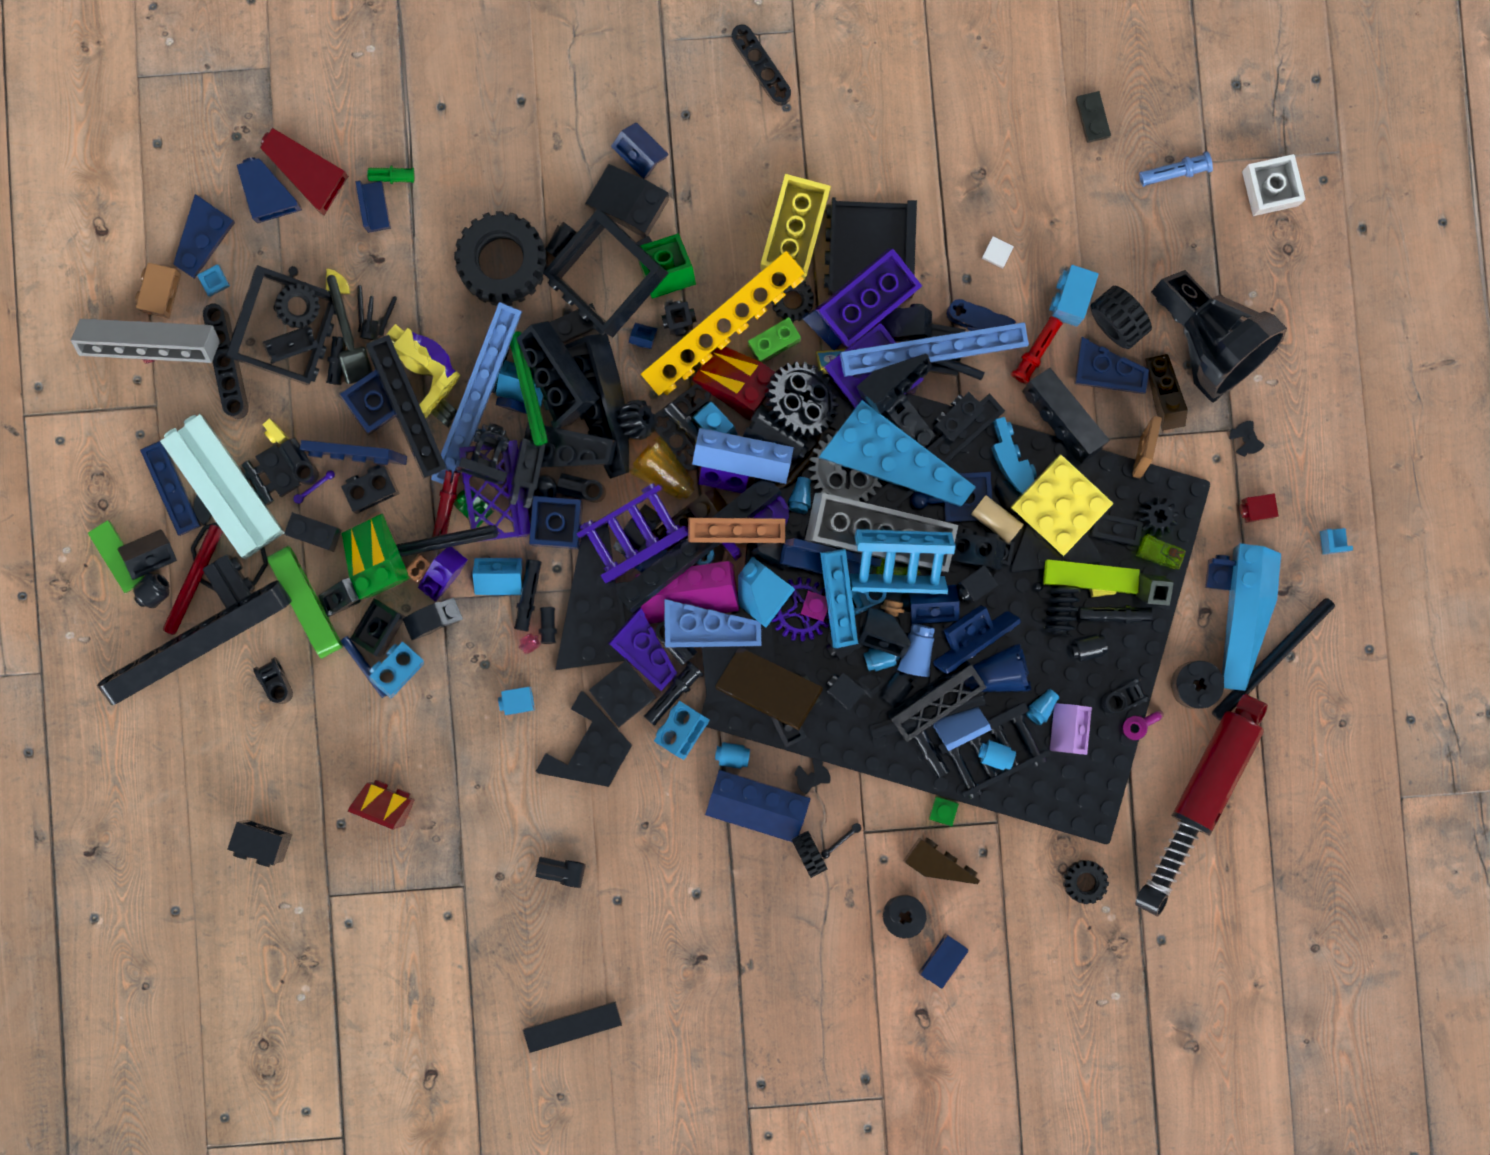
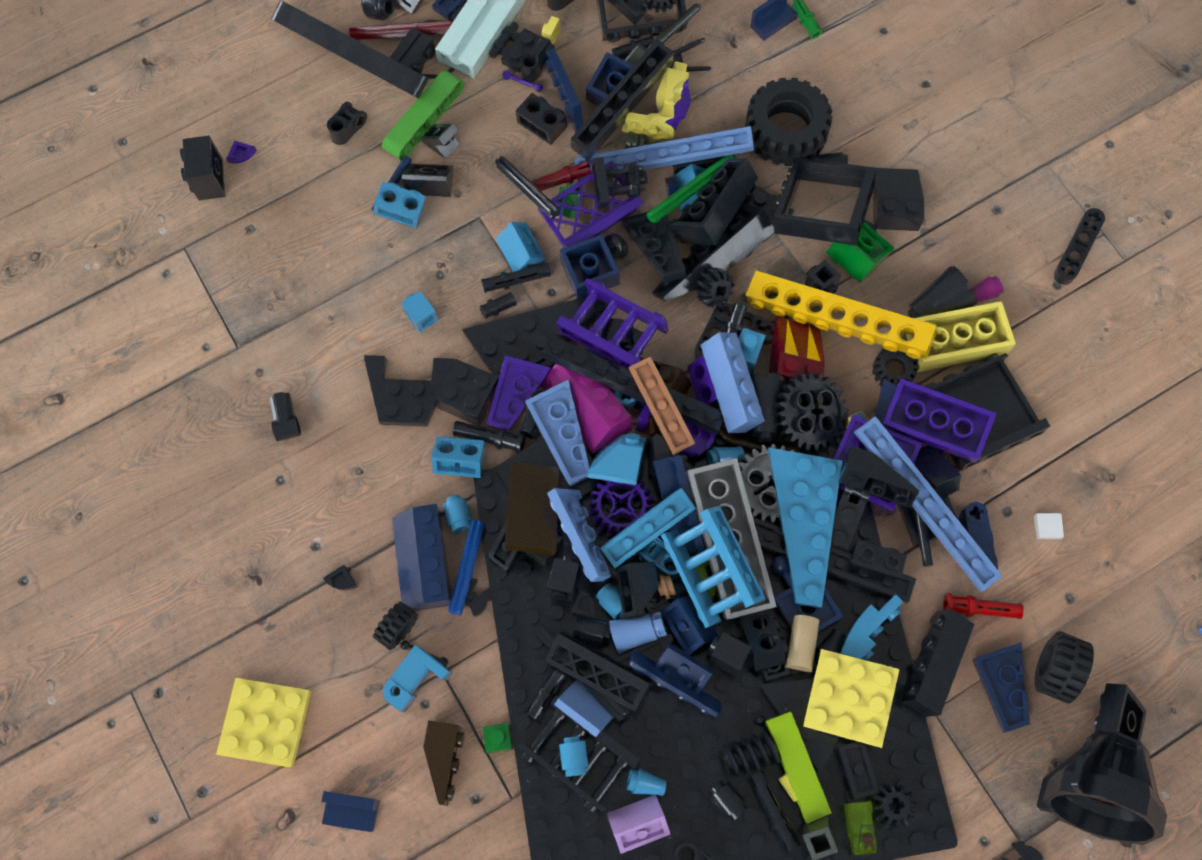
camera: 70 degrees right, 15 degrees down
(251, 799) = (240, 152): none -> dark purple tile
(313, 532) = (483, 93): black brick -> none
(342, 283) = (697, 23): light yellow tile -> none
(373, 558) = (483, 146): green slope -> none
(382, 805) = (274, 242): dark red slope -> none
(414, 565) = (492, 181): nougat piece -> none
(432, 618) = (458, 210): black brick -> none
(442, 573) = (500, 202): dark purple slope -> none
(526, 471) = (621, 220): black hinge -> none
(529, 643) = (474, 298): clear pink plate -> none
(572, 1027) = (147, 495): black tile -> none
(579, 487) = (631, 275): black piece -> none
(639, 149) = (945, 185): dark blue panel -> none
(643, 335) = (789, 261): dark blue plate -> none
(663, 468) = (685, 328): clear yellow cone -> none
(739, 884) = (341, 579): none -> black tile
(751, 221) = (943, 295): none -> black cone
(760, 176) = (988, 289): none -> magenta cone
(774, 341) = (849, 368): bright green brick -> none
(785, 769) = (466, 567): none -> blue axle
(803, 659) = (582, 536): none -> medium blue wing
(815, 606) = (629, 512): magenta plate -> none
(833, 1003) = (264, 722): none -> light yellow plate
(857, 860) = (409, 677): none -> dark azure piece
(906, 928) = (366, 757): black piece -> none
(1002, 672) = (659, 724): dark blue cone -> none
(1074, 295) = (1056, 611): dark azure brick -> none
(1146, 447) = (955, 756): medium nougat tile -> none
(1166, 392) = (1017, 754): dark brown slope -> none

